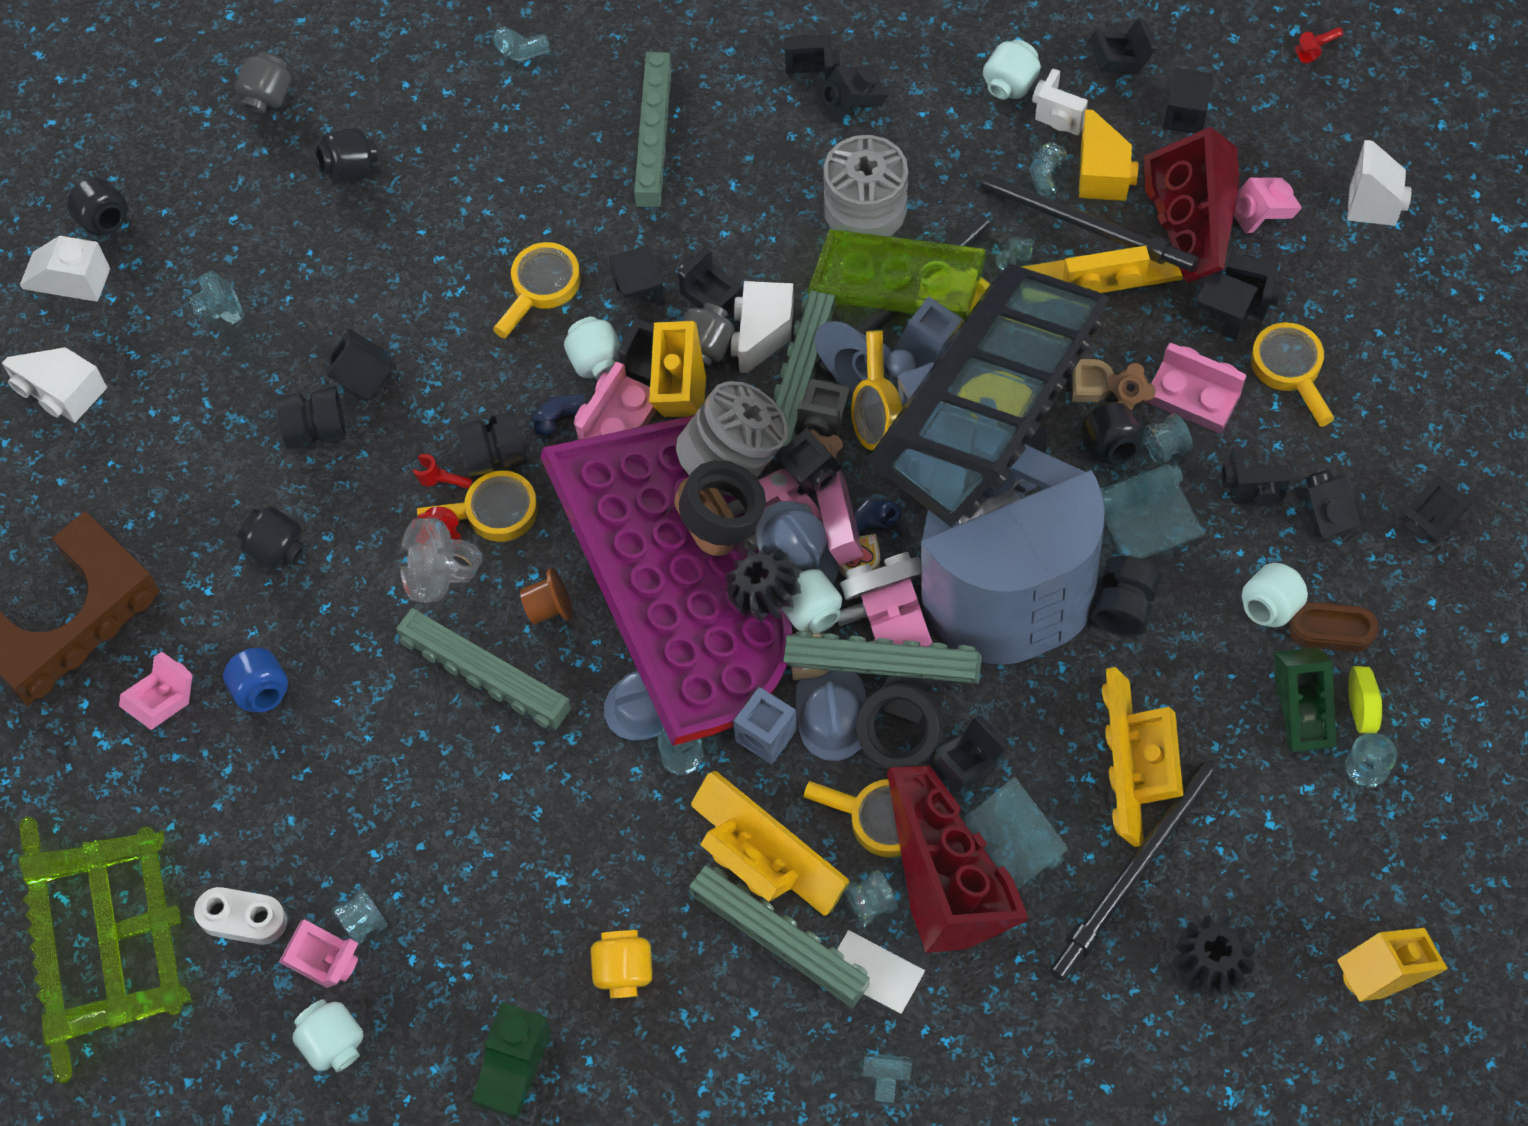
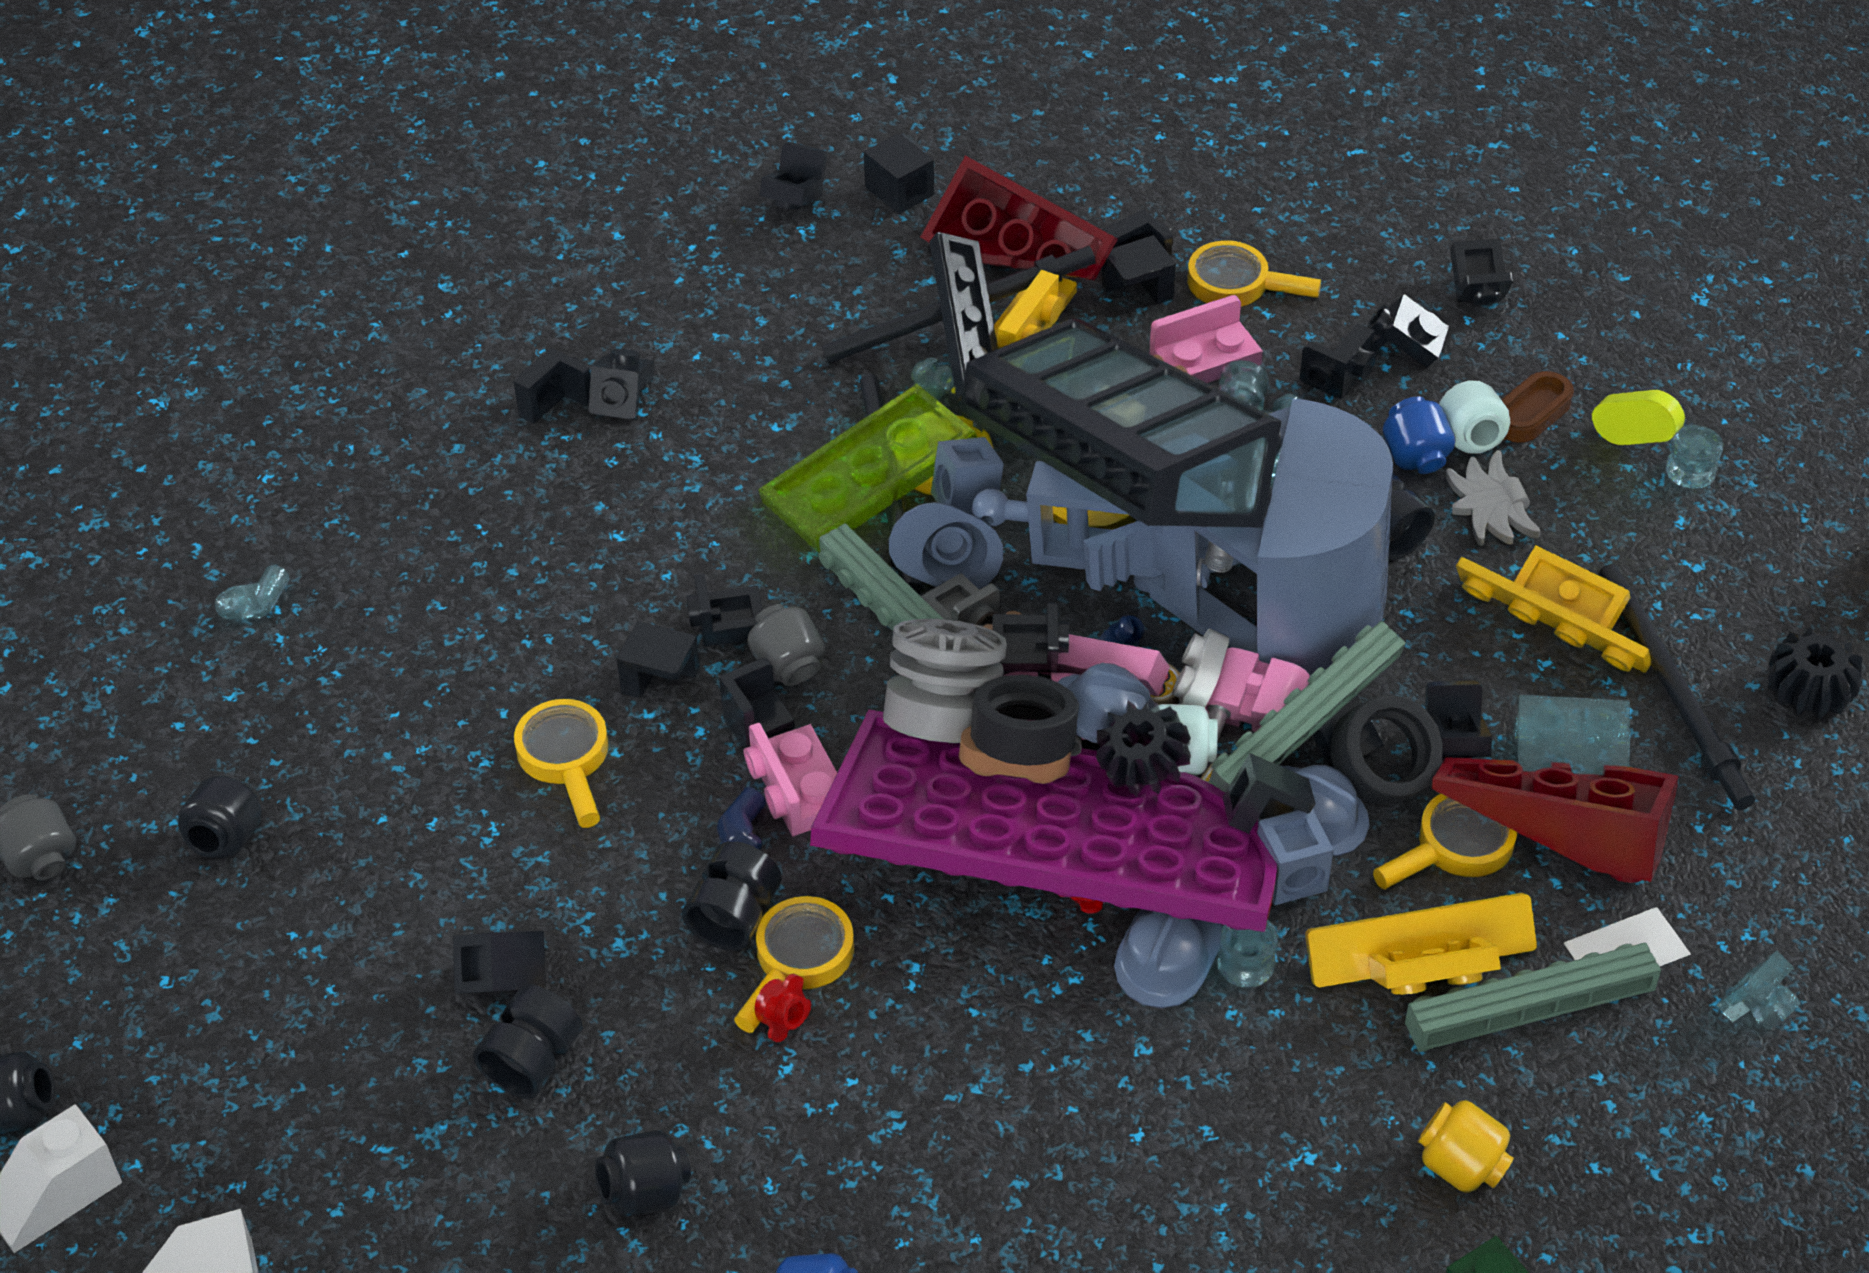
camera: 55 degrees left, 15 degrees down
(216, 299) = (268, 1047): clear light blue tile -> none
(432, 561) = (827, 1030): clear tile -> none
(435, 474) = (697, 970): red hand -> none
(483, 669) = (993, 1072): sand green piece -> none
(547, 599) = (968, 958): dark orange piece -> none
(592, 347) = (704, 743): light aqua head -> none
(653, 129) = (487, 552): sand green piece -> none
(677, 369) = (813, 682): yellow slope -> none
(765, 322) = (817, 583): white slope -> none
(788, 676) = (1265, 792): none -> black panel
(865, 186) = (752, 424): light grey wheel -> none
(871, 898) = (1554, 890): clear light blue wheel -> none
(875, 399) = (1013, 555): piece -> none
(1011, 69) = (732, 259): light aqua head -> none
(1046, 159) = (856, 306): clear light blue arm -> none
(1058, 107) = (806, 255): white bracket -> none
(1076, 223) = (962, 302): none -> black tile
(1105, 161) = (892, 260): yellow slope -> none
(1212, 655) = (1492, 501): none -> light grey piece
(1223, 571) = (1418, 435): none -> blue head
(1264, 200) = (1059, 185): bright pink bracket -> none
(1306, 698) = (1597, 451): dark green arch -> none
(1310, 45) = (926, 75): red hand -> none
(1377, 188) = (1122, 115): white slope -> none

